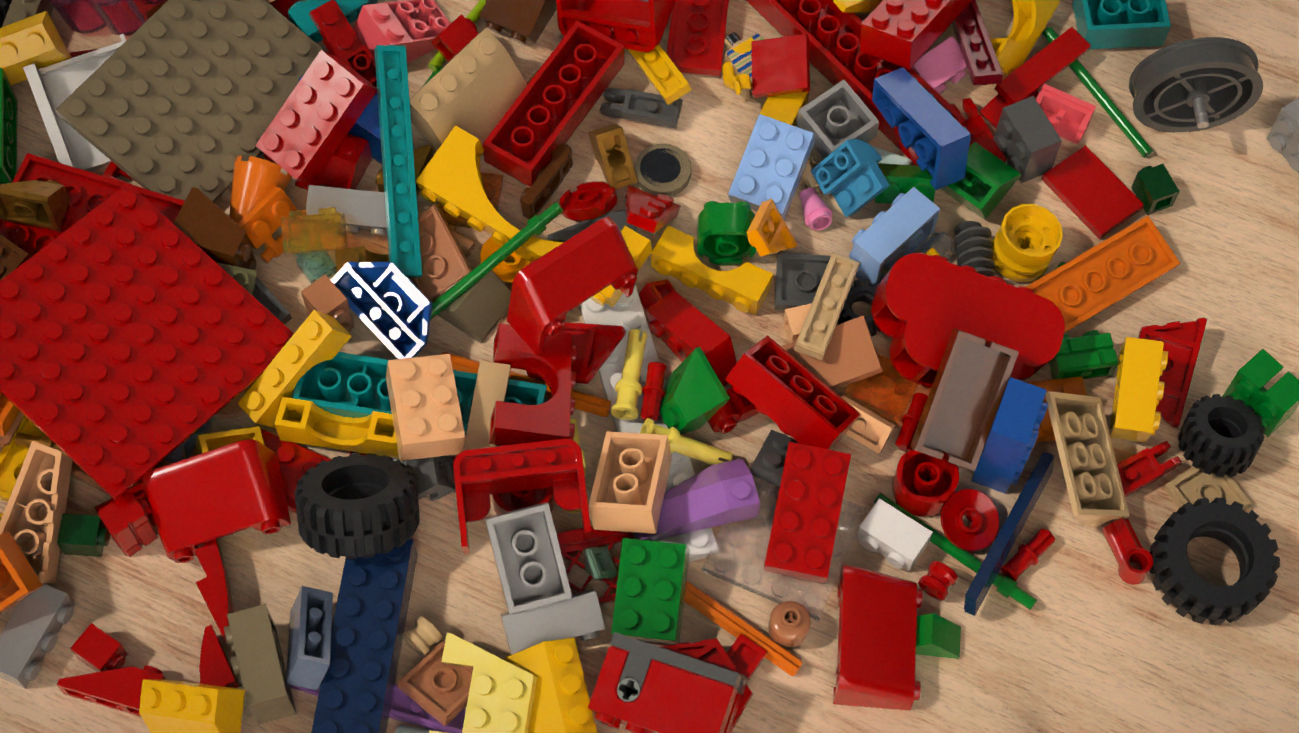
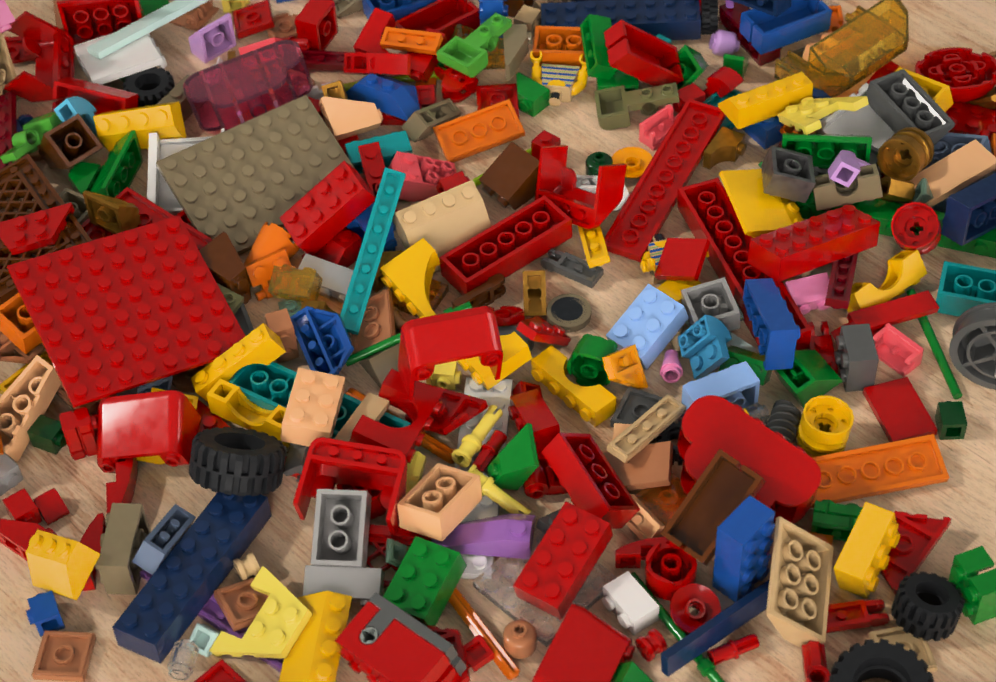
camera: 25 degrees right, 15 degrees down
(133, 632) = (51, 506): none -> red slope
(874, 470) = (631, 554): none -> red slope

